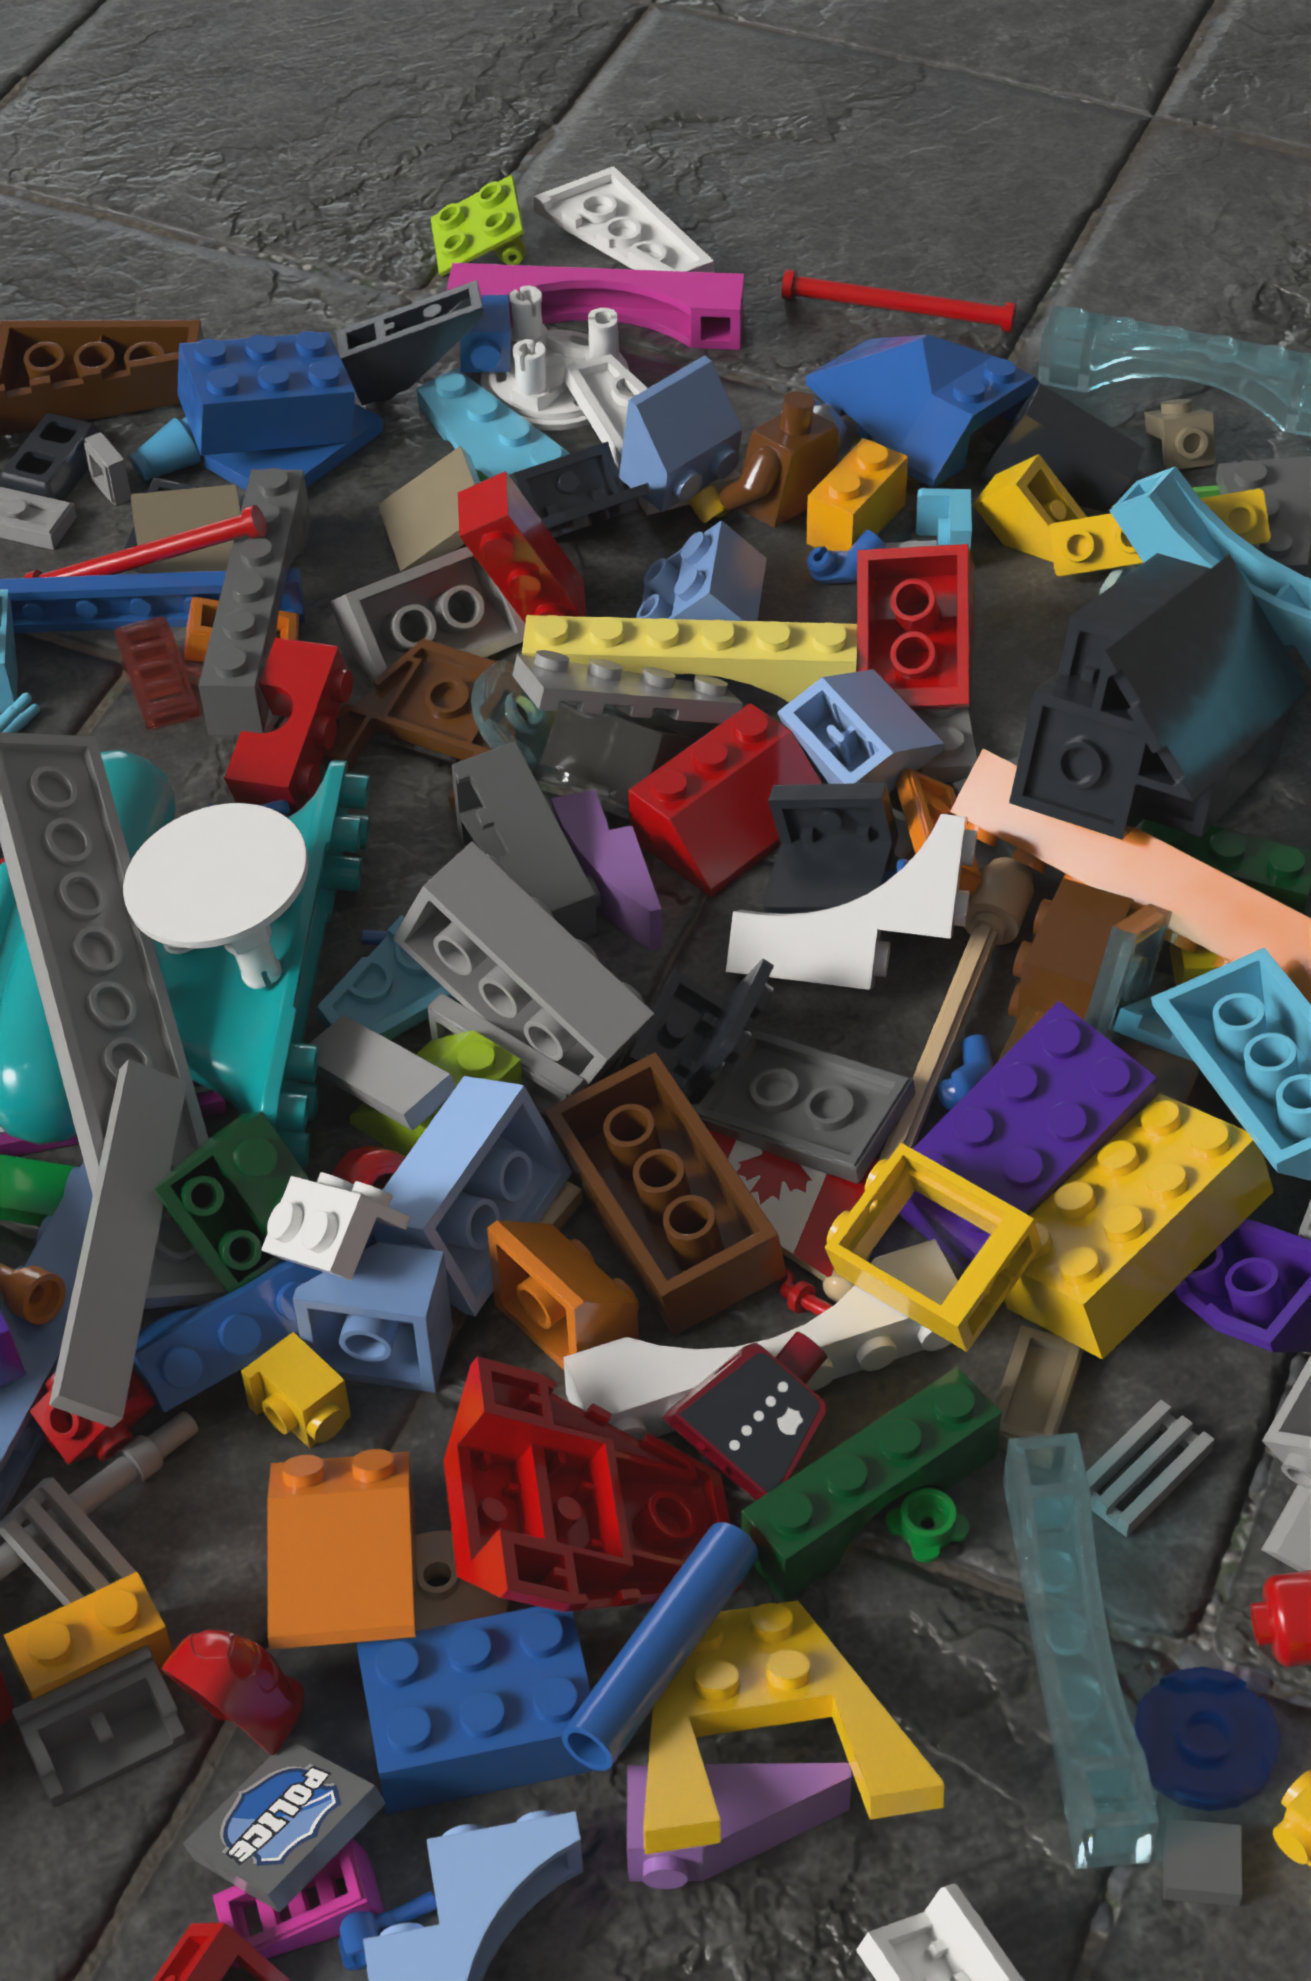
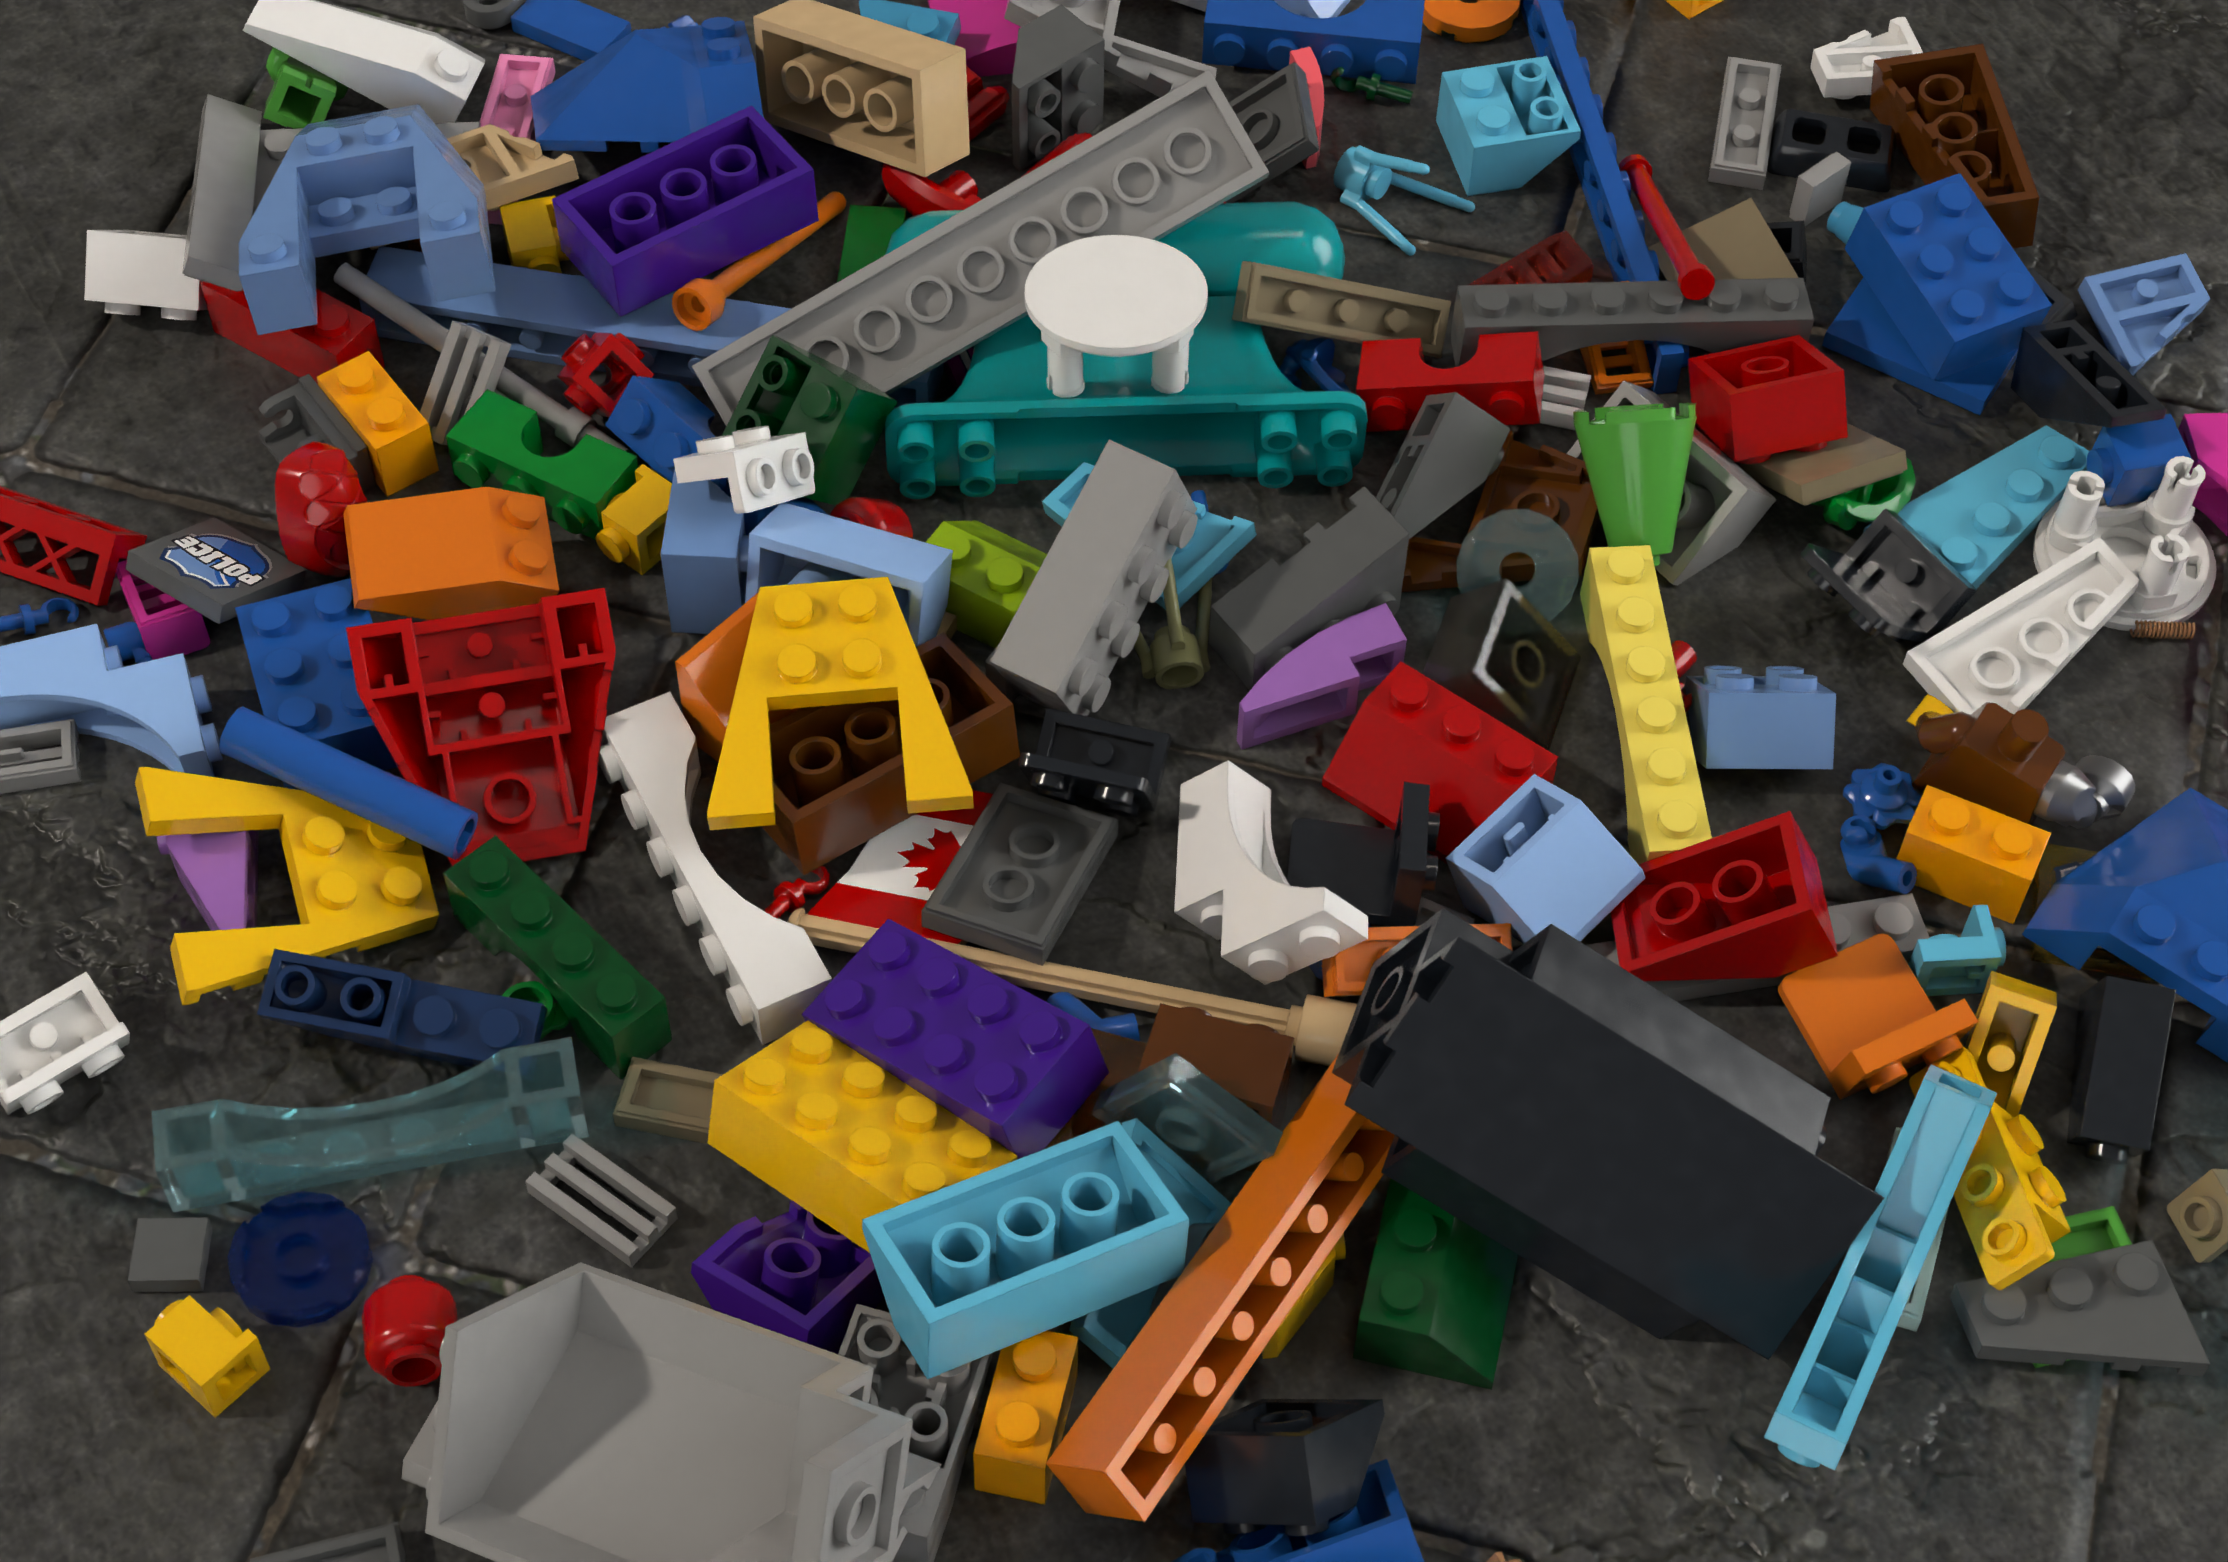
camera: 80 degrees right, 5 degrees up
(118, 1246) = (730, 330): light grey tile -> none
(170, 1528) = (501, 449): none -> green arch
(192, 770) = (1337, 308): none -> dark tan tile
(298, 304) = (2143, 306): none -> medium blue wing
(369, 522) = (1768, 399): none -> red brick
(381, 1072) = (982, 503): light grey tile -> none
(398, 754) = (1441, 460): none -> dark grey slope
(449, 598) = (1637, 470): none -> bright green cone
(518, 550) = (1718, 519): red brick -> none
(583, 1180) = (830, 649): none -> yellow wing
(589, 687) = (1539, 608): light grey wing -> none
(636, 367) = (2164, 628): none -> medium nougat leg
(680, 435) = (1977, 639): medium blue slope -> none
(755, 1413) = (605, 839): black torso -> none
(786, 542) = (1882, 795): none -> blue plant
(942, 1611) = (395, 1011): none -> dark blue slope
(985, 1281) = (710, 959): yellow window -> none
(1030, 578) = (1871, 1017): none -> orange bracket

